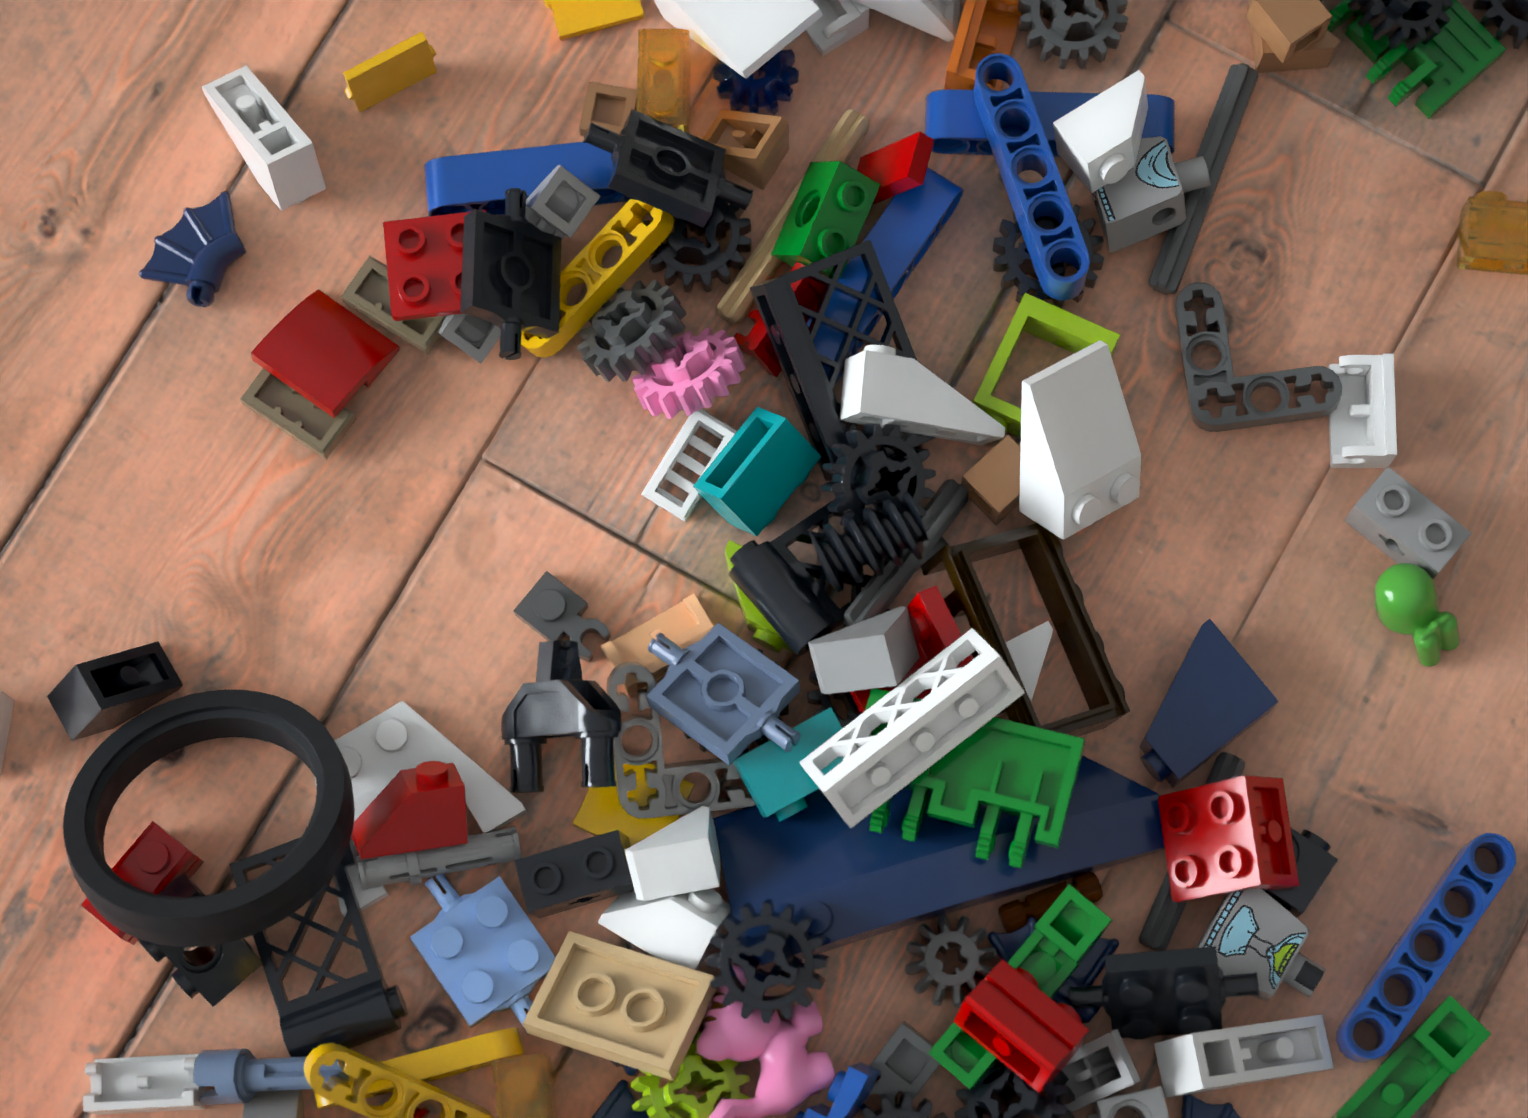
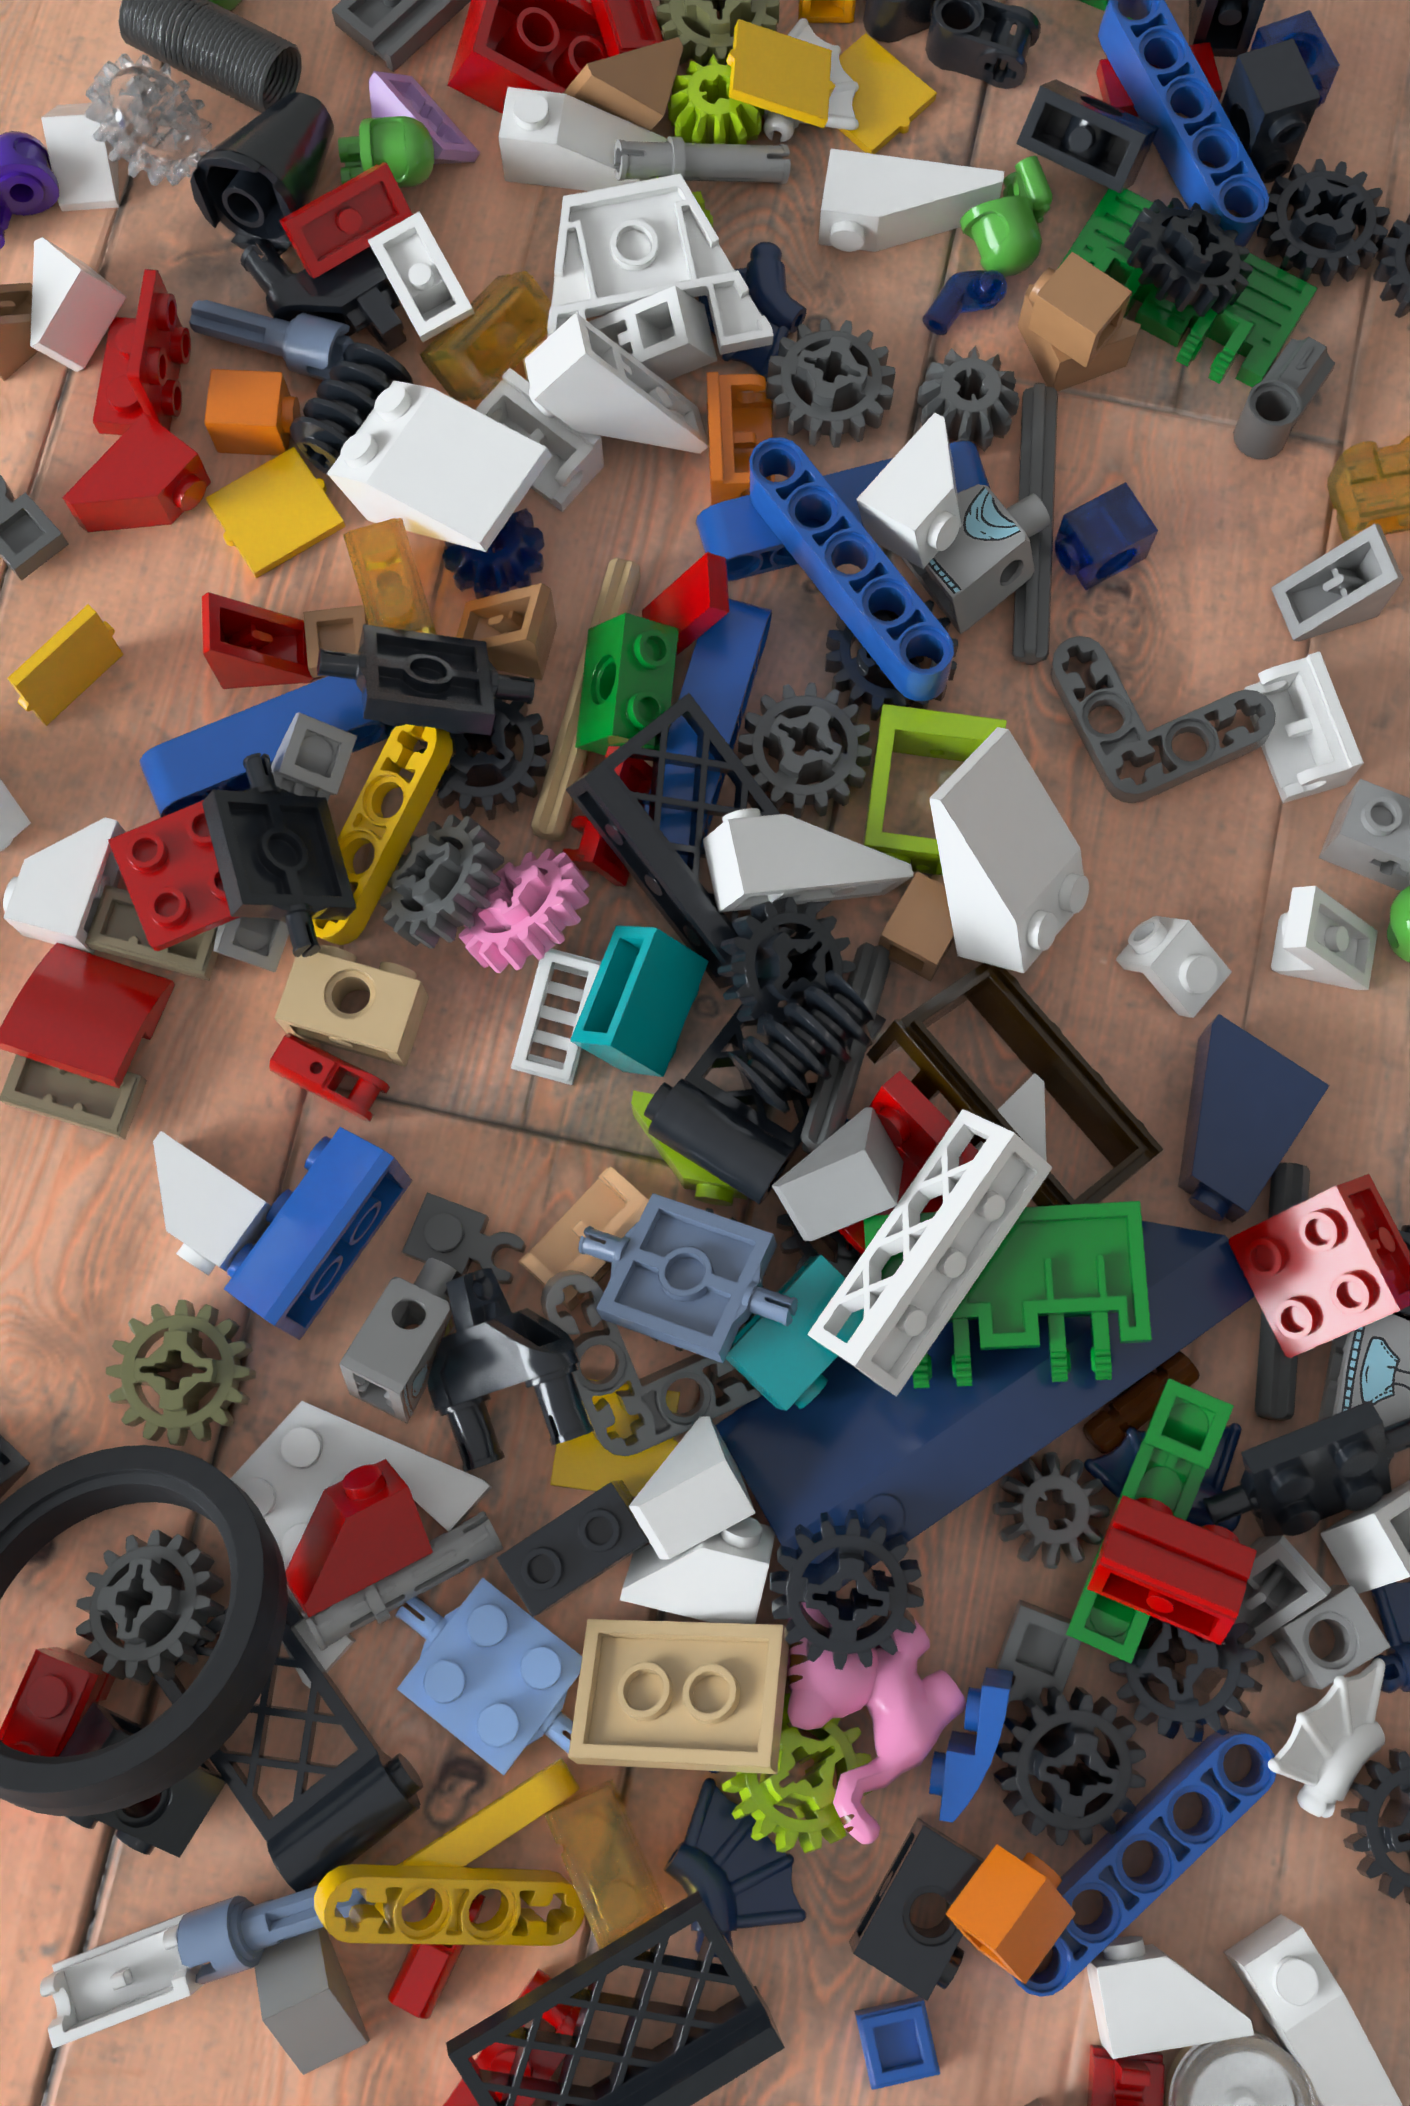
camera: 20 degrees left, 0 degrees up
(244, 818) = (150, 1607): none -> dark grey gear
(309, 671) = (180, 1399): none -> olive gear
(337, 247) = (63, 886): none -> white slope
(374, 532) = (205, 1207): none -> white slope
(454, 575) = (317, 1231): none -> blue slope
(489, 677) = (391, 1363): none -> light grey torso
(493, 454) = (323, 1072): none -> red bar
(541, 96) = (252, 644): none -> red slope
(550, 433) = (379, 1031): none -> tan brick
(968, 294) = (792, 726): none -> dark grey gear
(1186, 44) = (970, 396): none -> dark grey gear
(1194, 569) = (1175, 962): none -> white bracket
(1254, 207) = (1104, 536): none -> clear blue brick
(1320, 588) = (1323, 941): none -> white slope
(1431, 305) = (1340, 586): none -> light grey slope
(1444, 133) = (1282, 398): none -> dark grey piece

